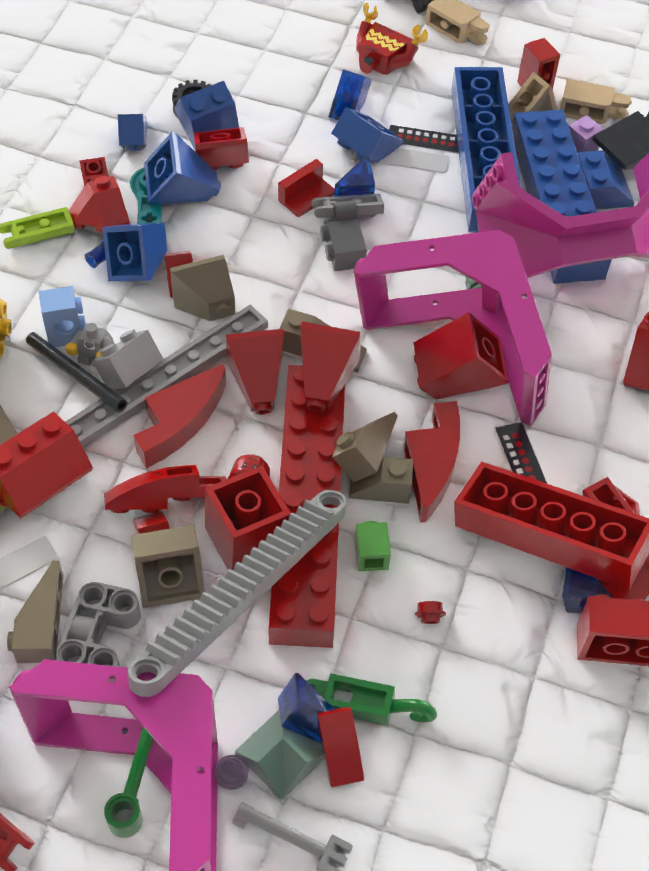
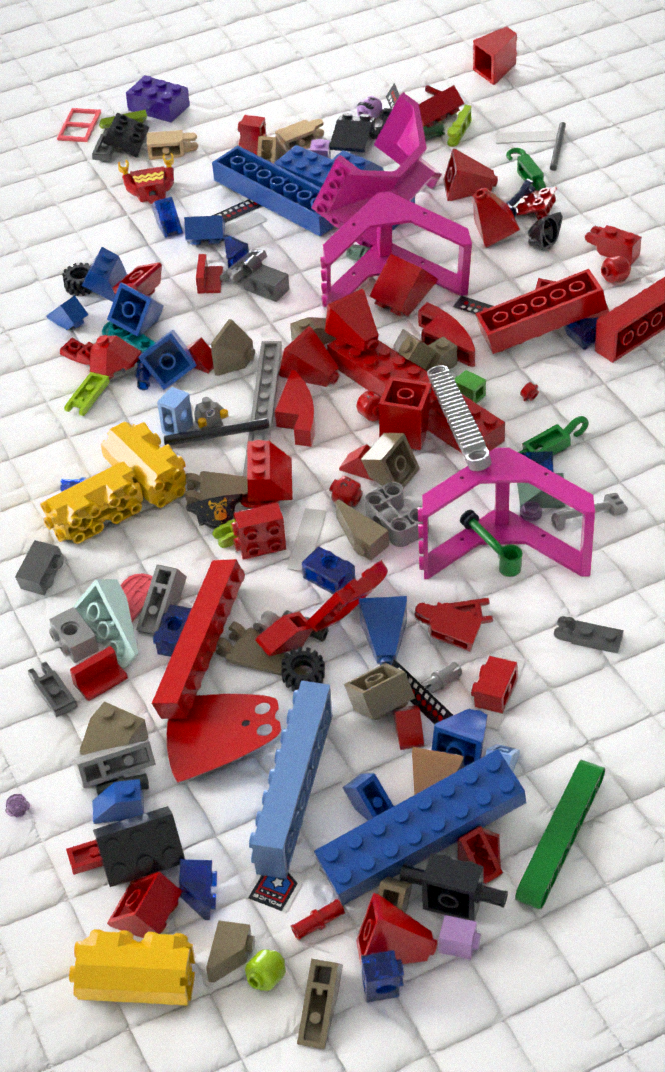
camera: 40 degrees left, 10 degrees down
(90, 557) = (346, 490): none -> red head
(128, 359) = (240, 402): light grey brick -> none
(152, 489) = (339, 440): red slope -> none
(340, 747) = (563, 458): red slope -> none

